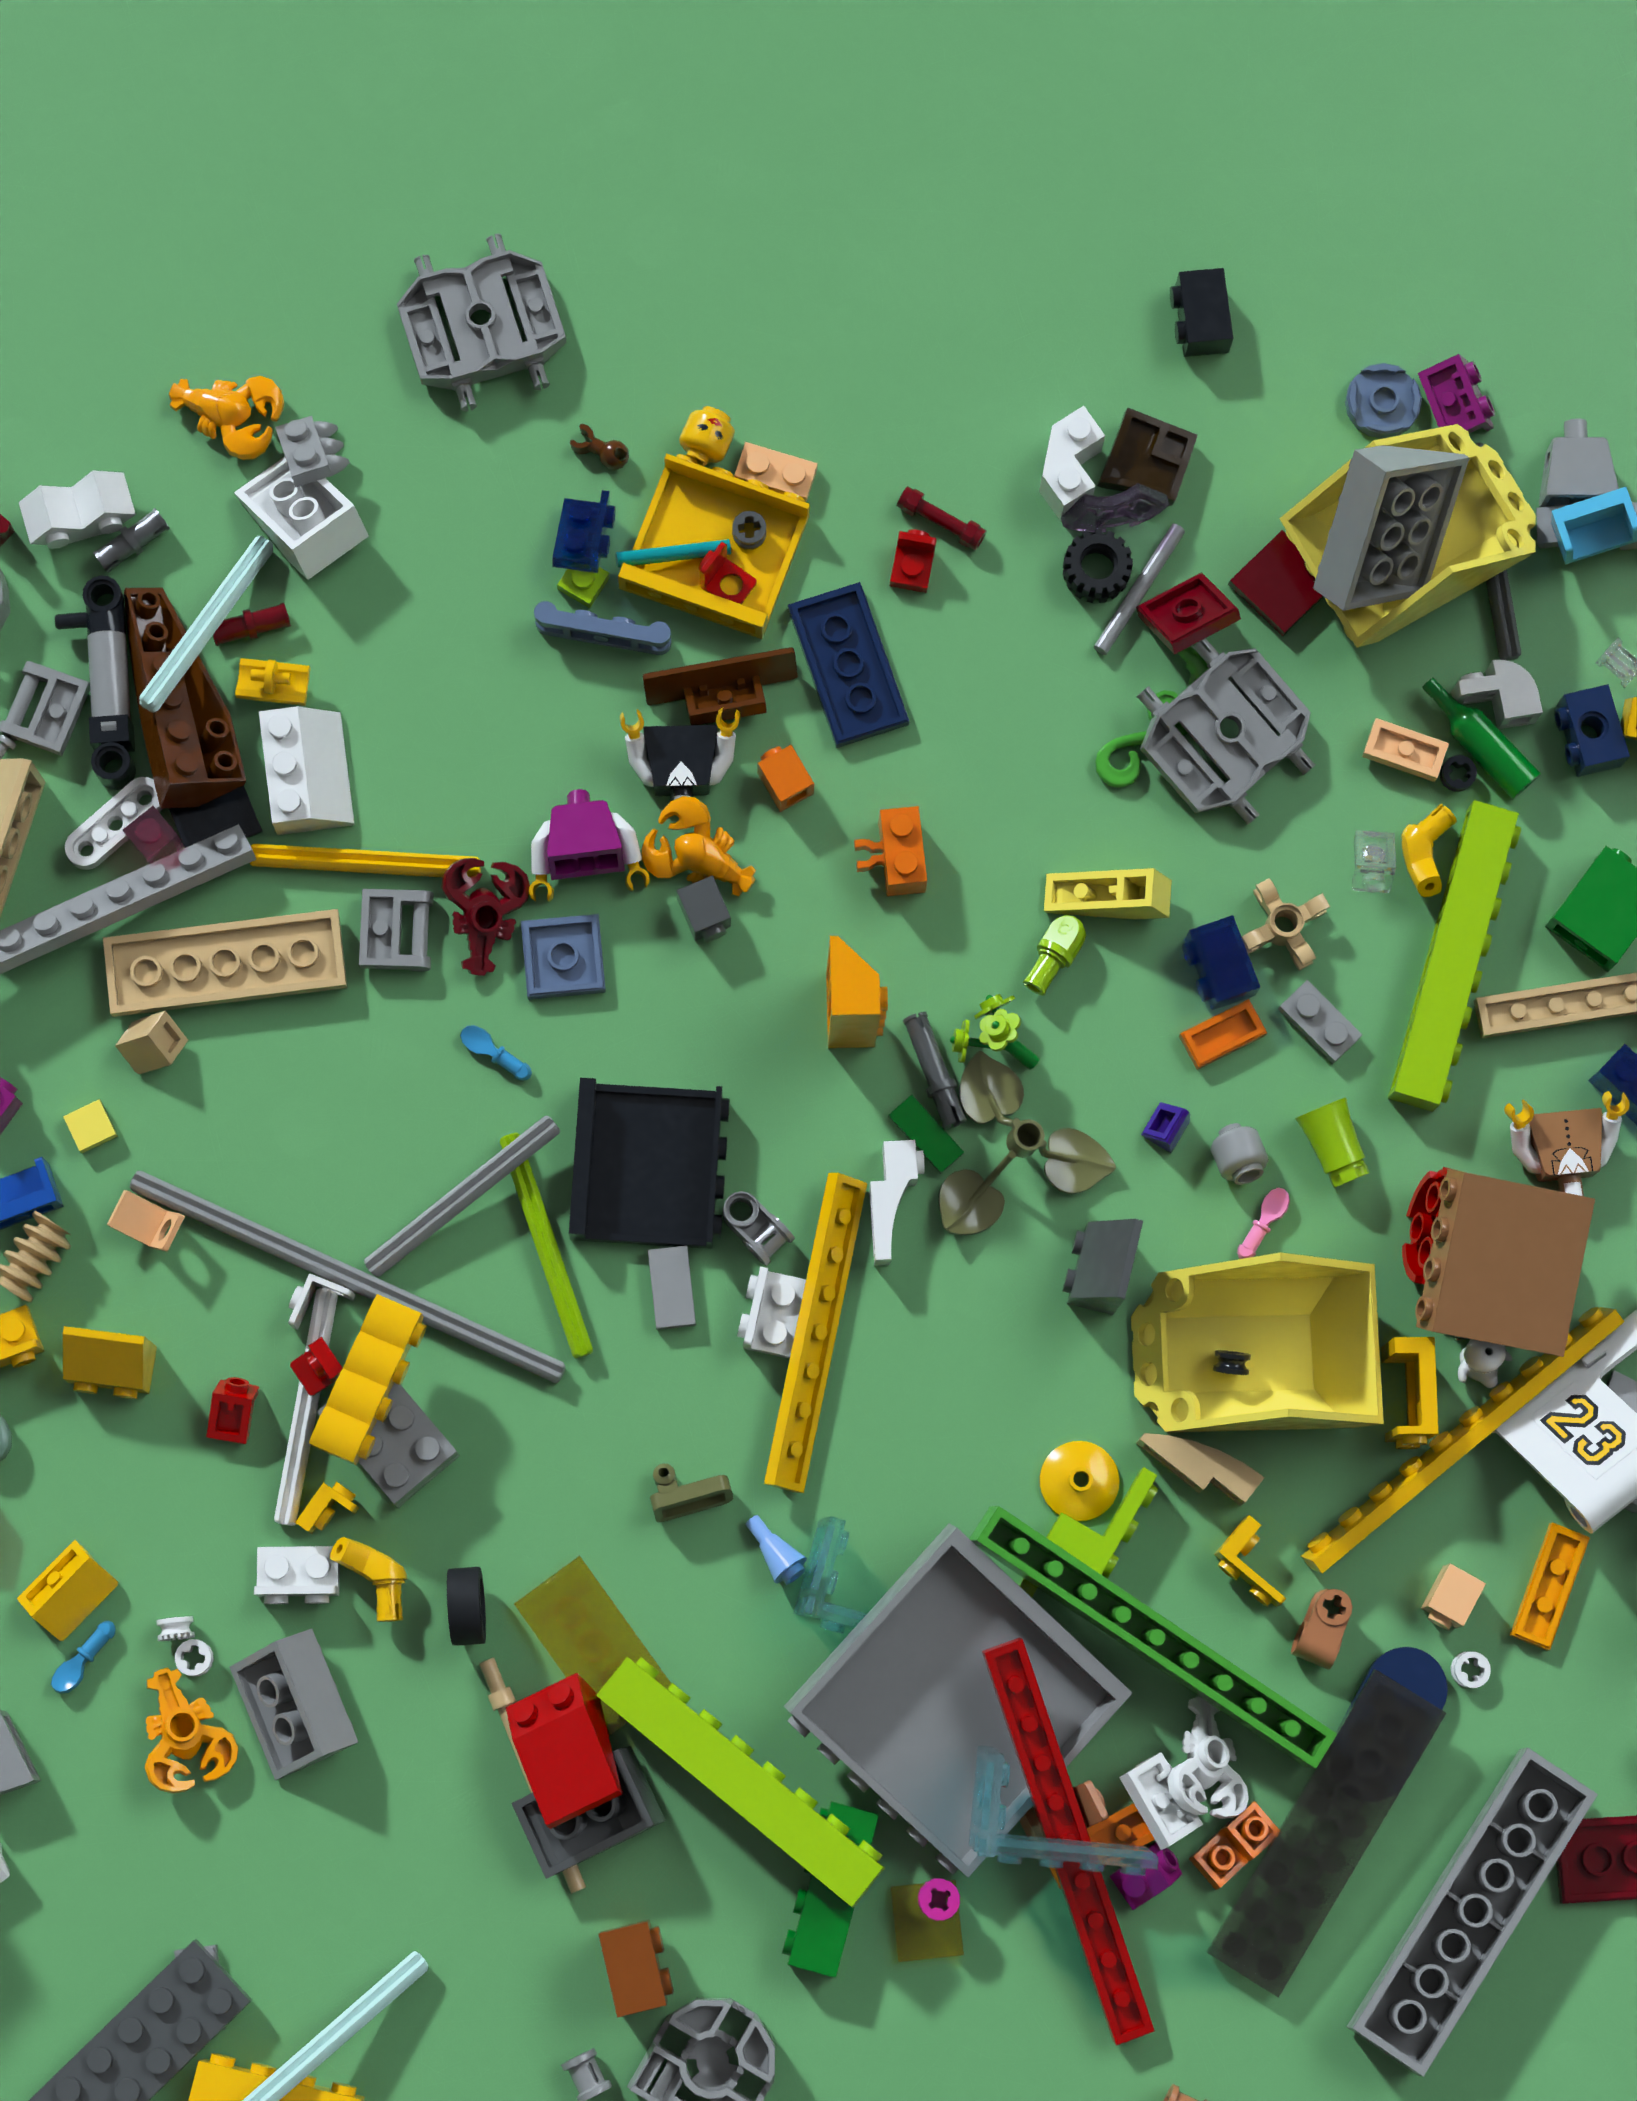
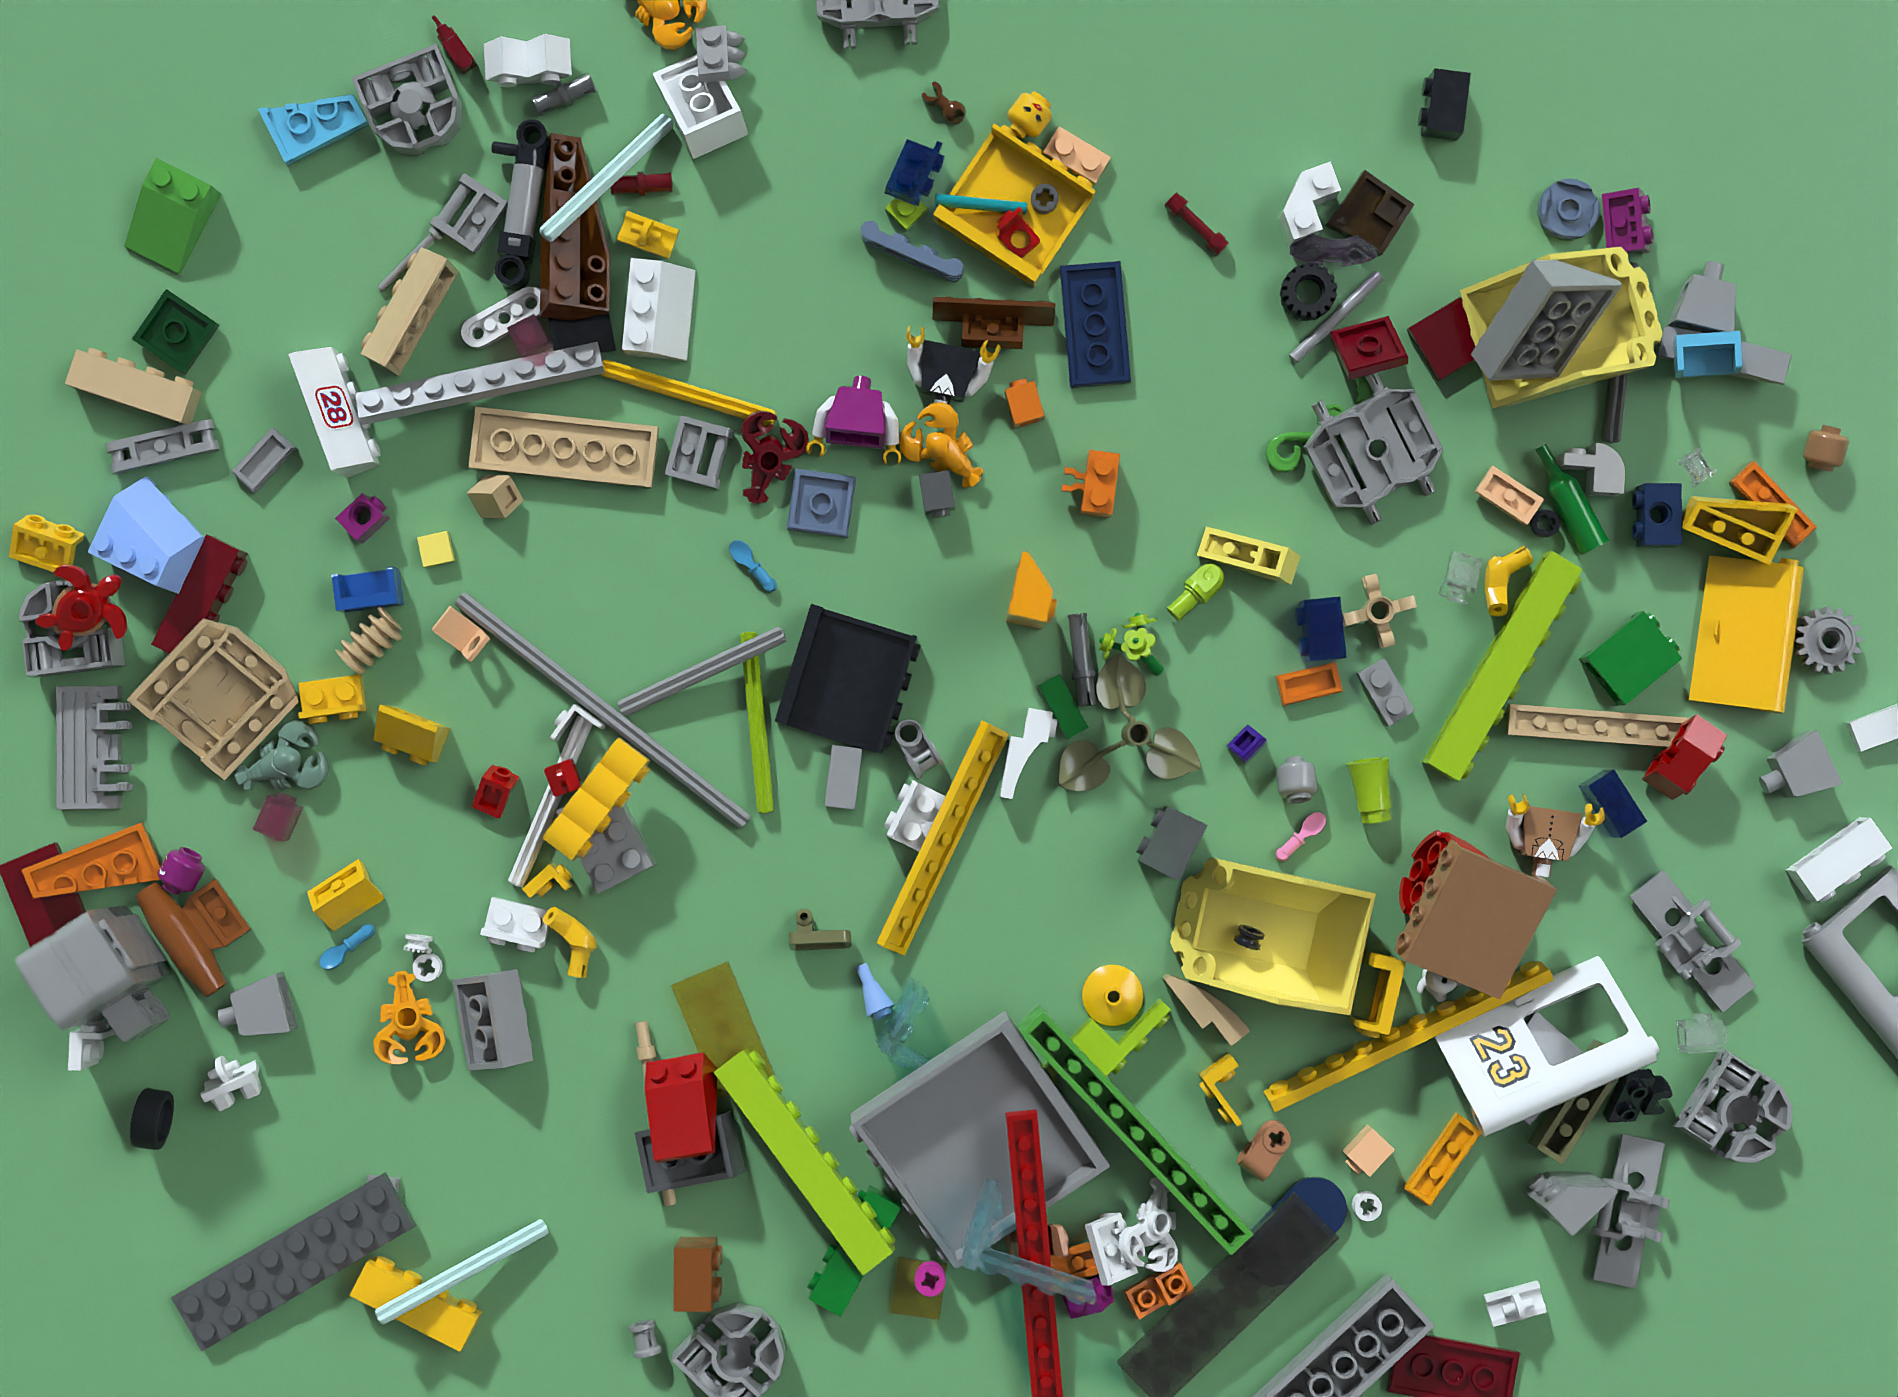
camera: 15 degrees right, 10 degrees up
(466, 1606) = (634, 981): black tyre -> none
(913, 560) = (1166, 253): red bracket -> none

